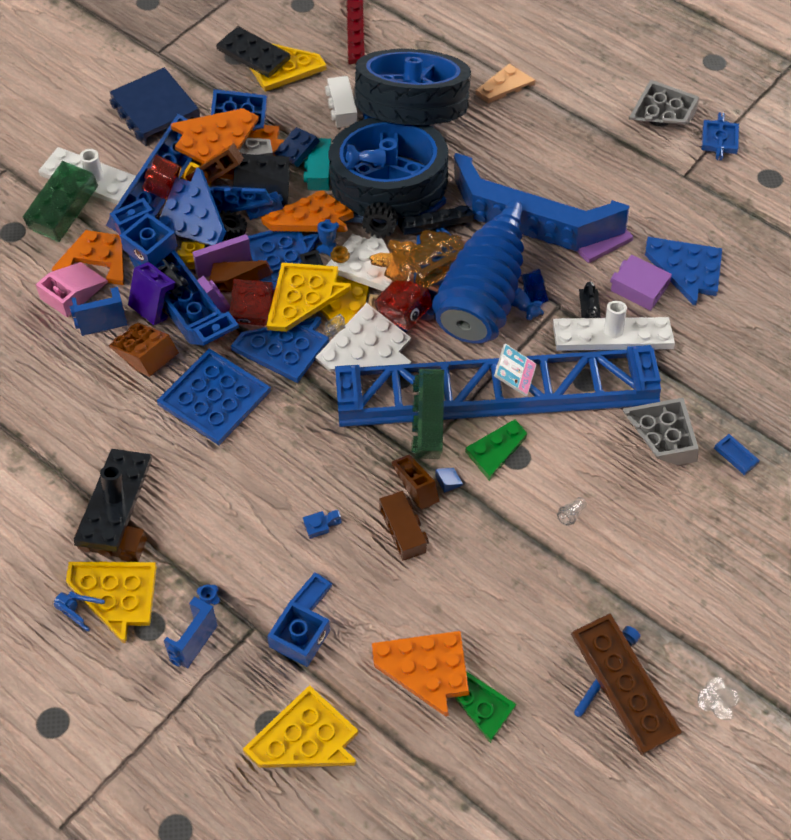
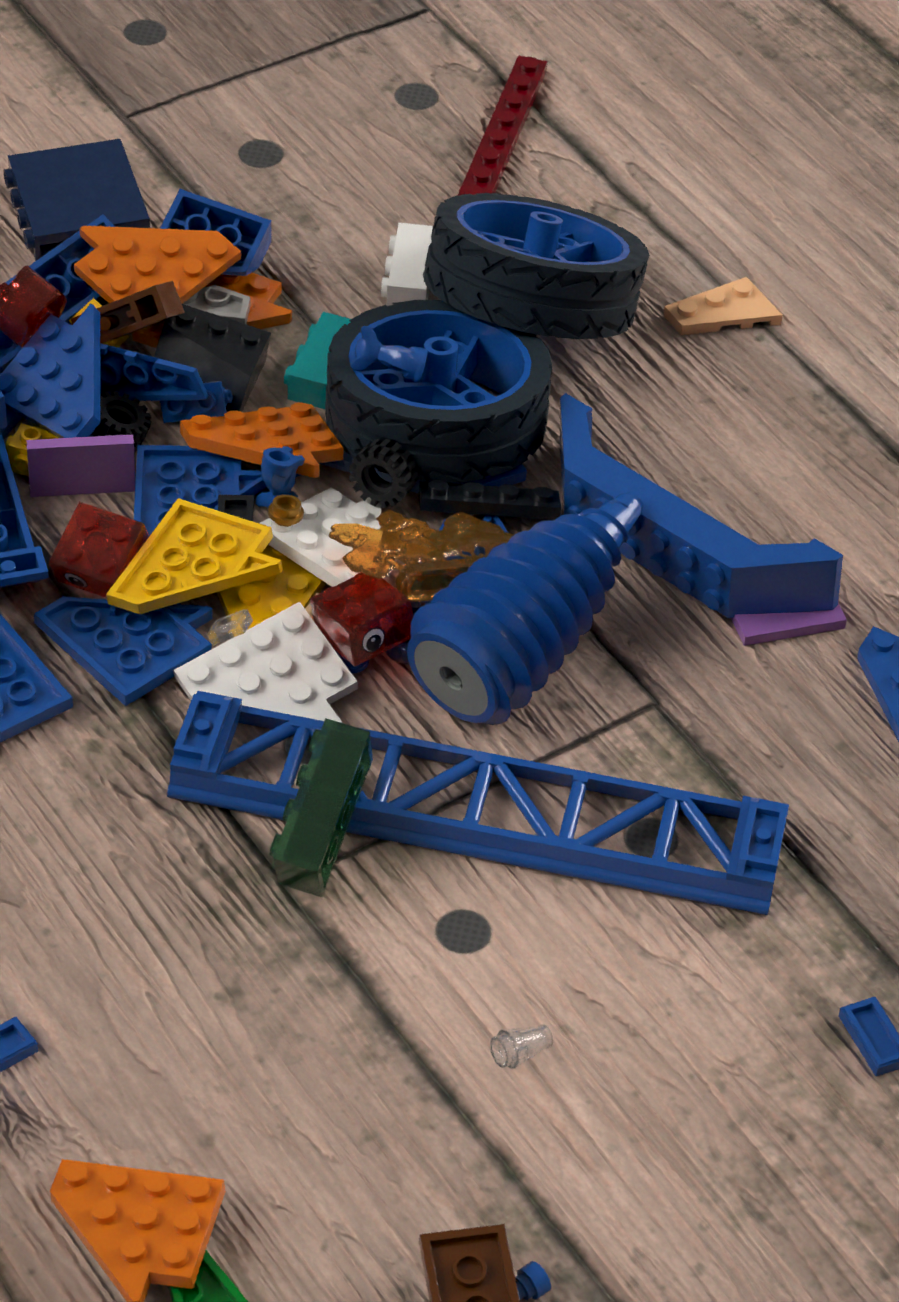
camera: 15 degrees right, 10 degrees down
(215, 295) = (34, 519): medium lavender wing -> none
(225, 272) = (115, 496): reddish brown slope -> none
(253, 51) = (288, 150): black plate -> none
(297, 146) = (295, 320): dark blue plate -> none
(299, 66) = (330, 184): yellow wing -> none
(318, 524) = (59, 941): blue plate -> none
(403, 525) = (205, 984): reddish brown brick -> none
(416, 481) = (260, 921): reddish brown slope -> none
(448, 479) = (321, 931): slope -> none
(493, 450) = (429, 904): green wing -> none
(515, 370) = (514, 777): piece -> none
(523, 303) = (586, 673): blue animal -> none
(534, 286) = (619, 656): clear blue hips -> none
(589, 301) = (714, 709): black hinge -> none
(613, 331) = (733, 766): white plate -> none
(640, 282) = (823, 699): medium lavender brick -> none
(666, 430) = (751, 955): light grey wedge -> none

